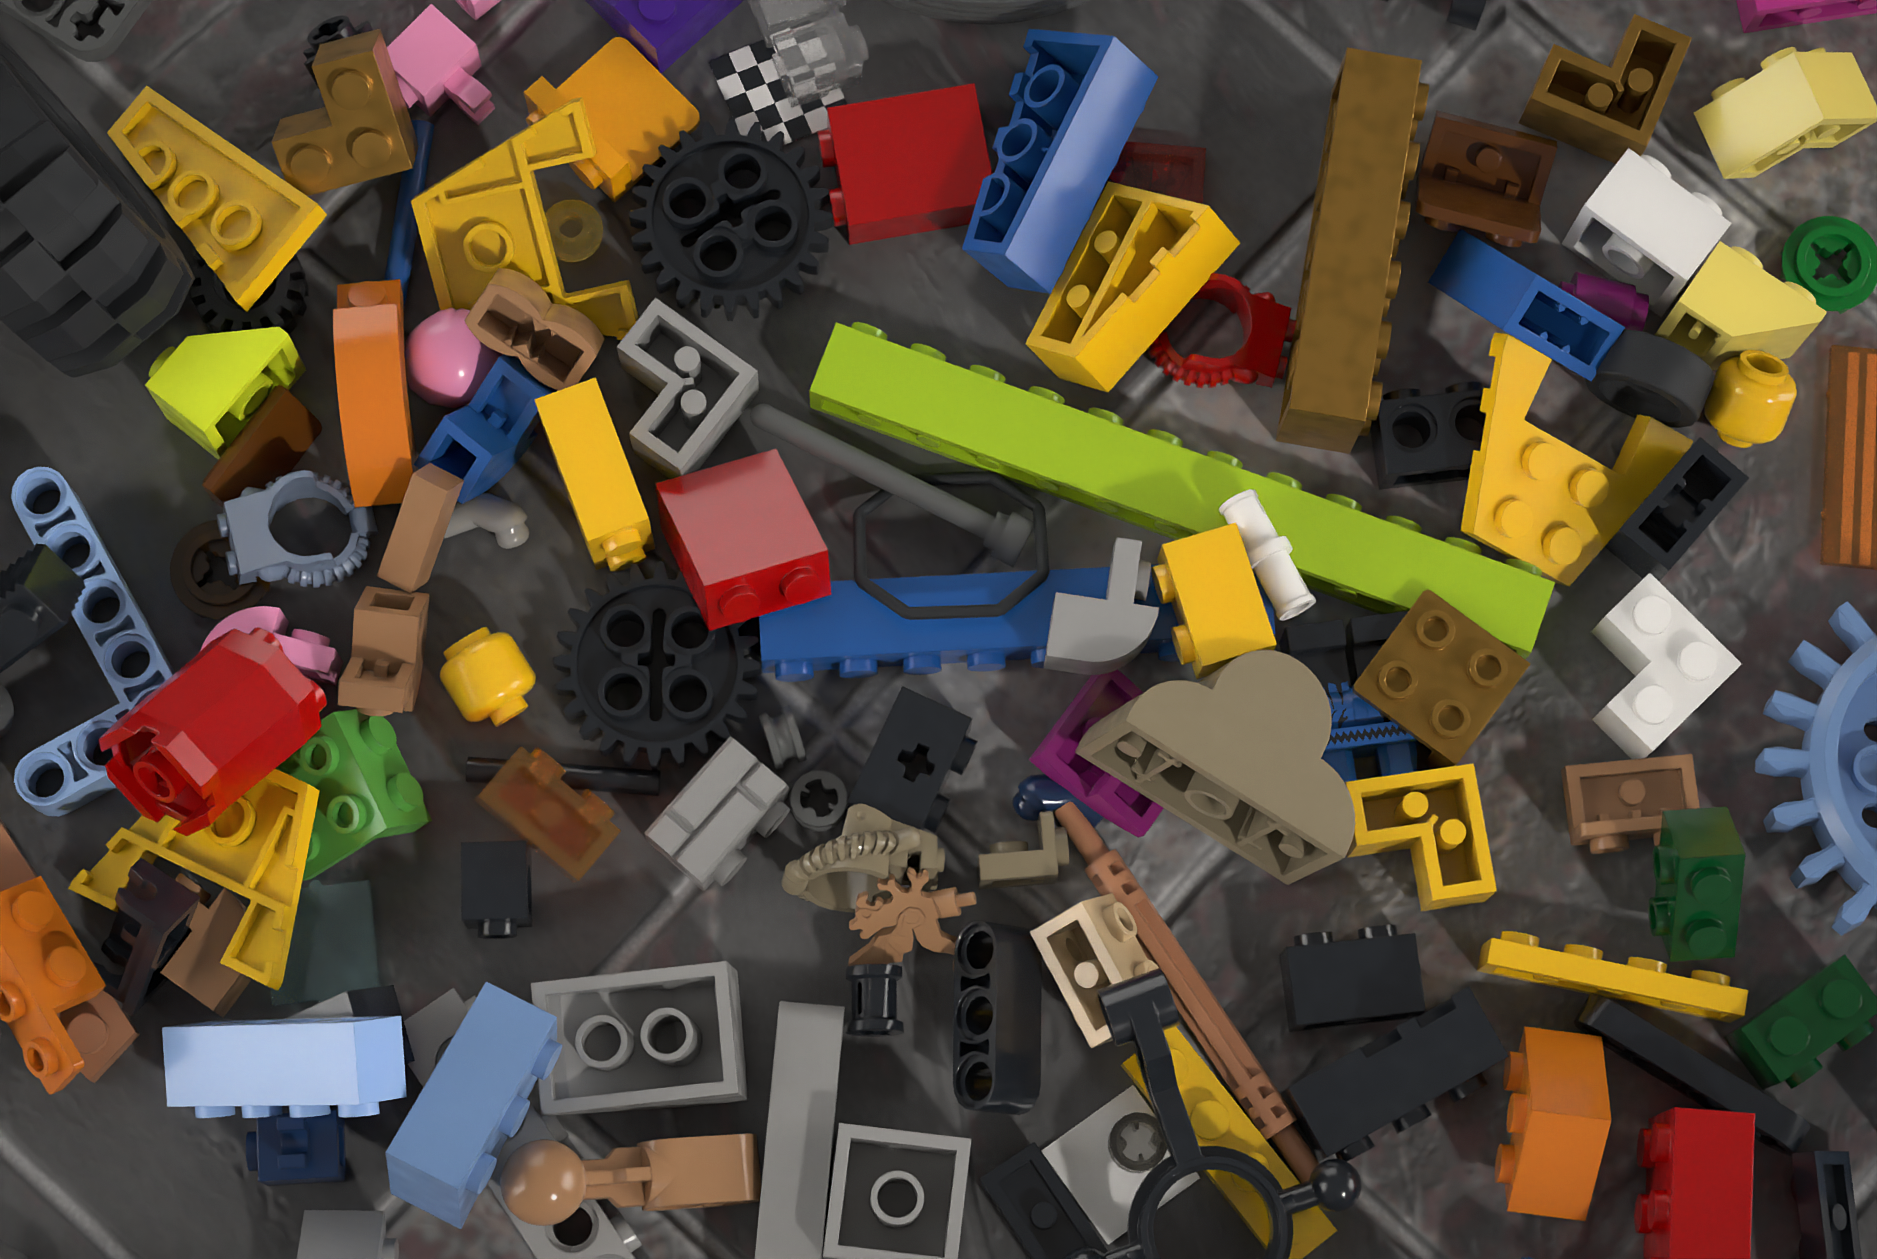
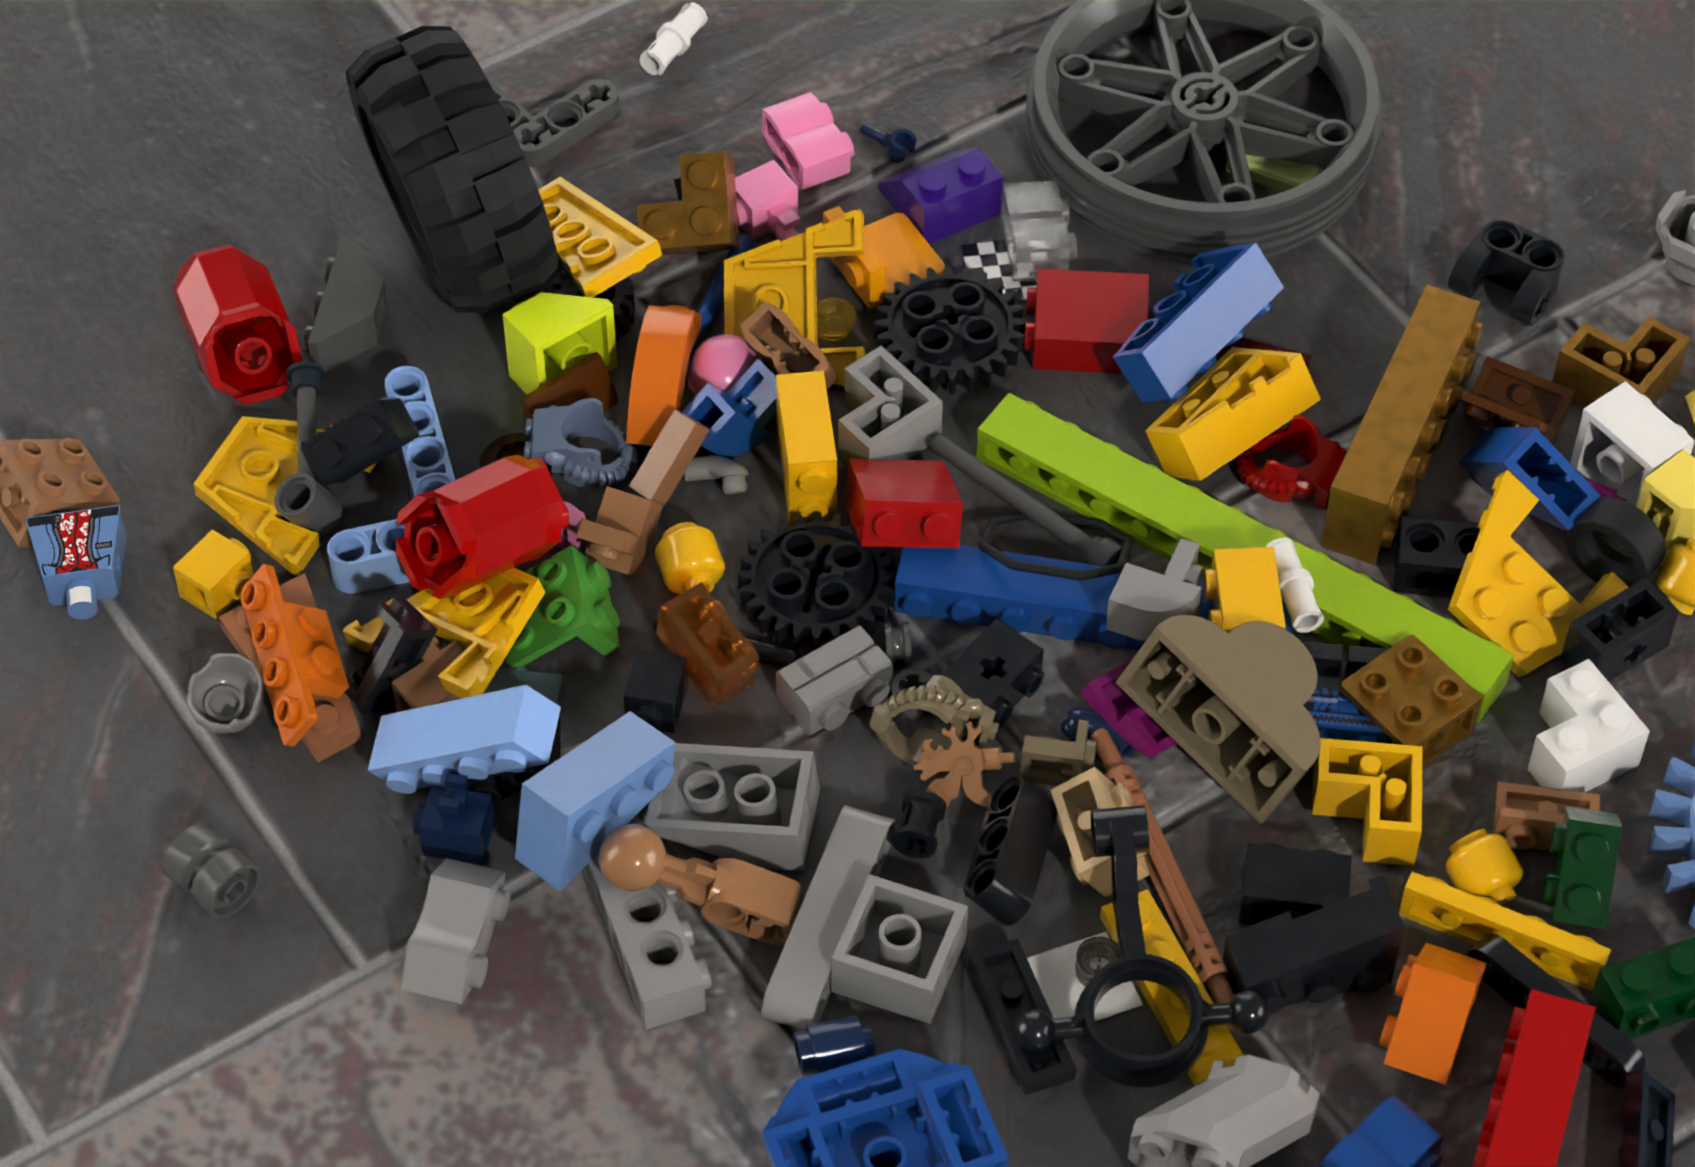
camera: 20 degrees right, 25 degrees down
(1572, 896) = (1484, 866): none -> yellow head

